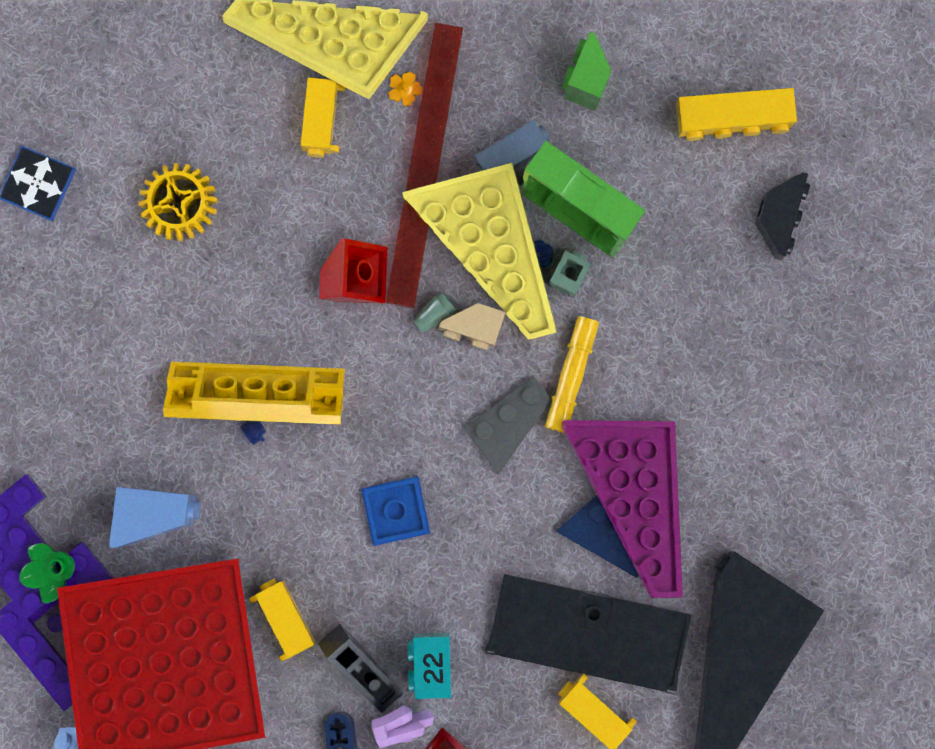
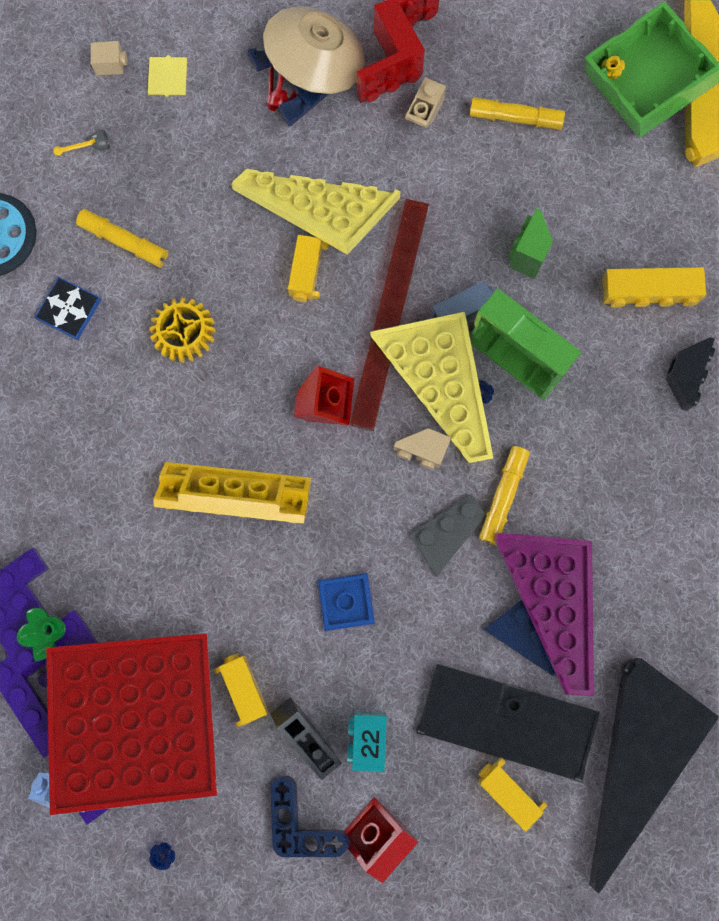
camera: 15 degrees right, 5 degrees down
(93, 92) = (121, 237): none -> yellow piece
(148, 514) = (133, 589): medium blue slope -> none
(253, 431) = (229, 524): clear blue plate -> none
(400, 726) = (337, 793): lavender rock -> none
(405, 88) = (377, 251): light orange plant -> none
(434, 312) = (390, 434): sand green cone -> none
(570, 285) = (515, 402): sand green brick -> none

